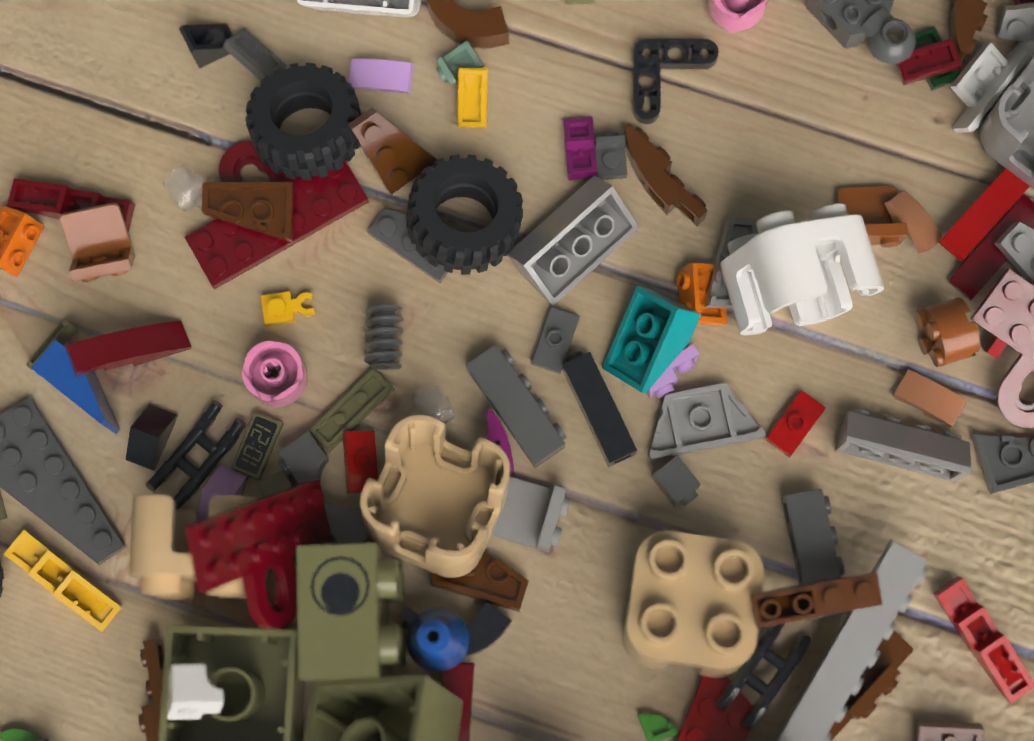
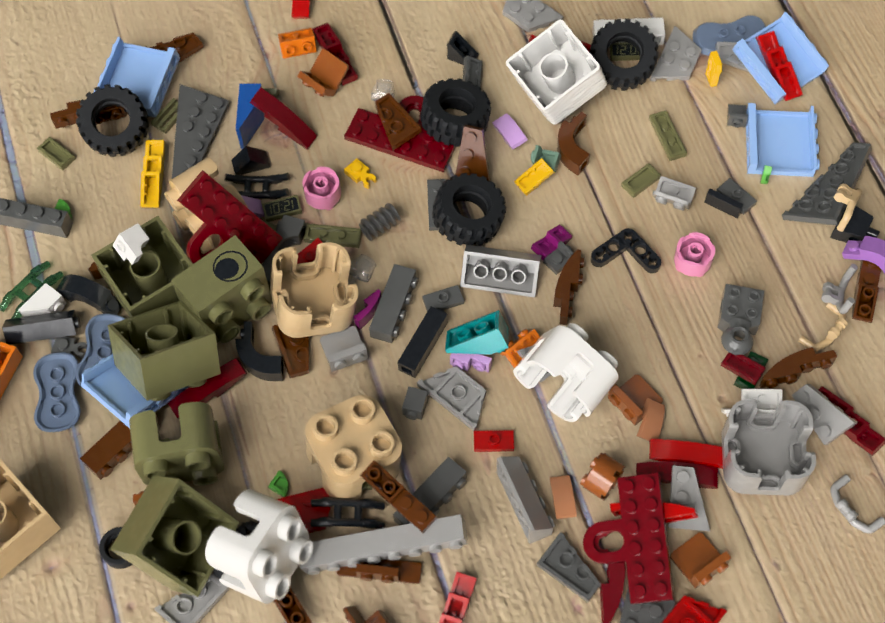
camera: 50 degrees right, 15 degrees down
(449, 648) = (243, 342): blue cone -> none

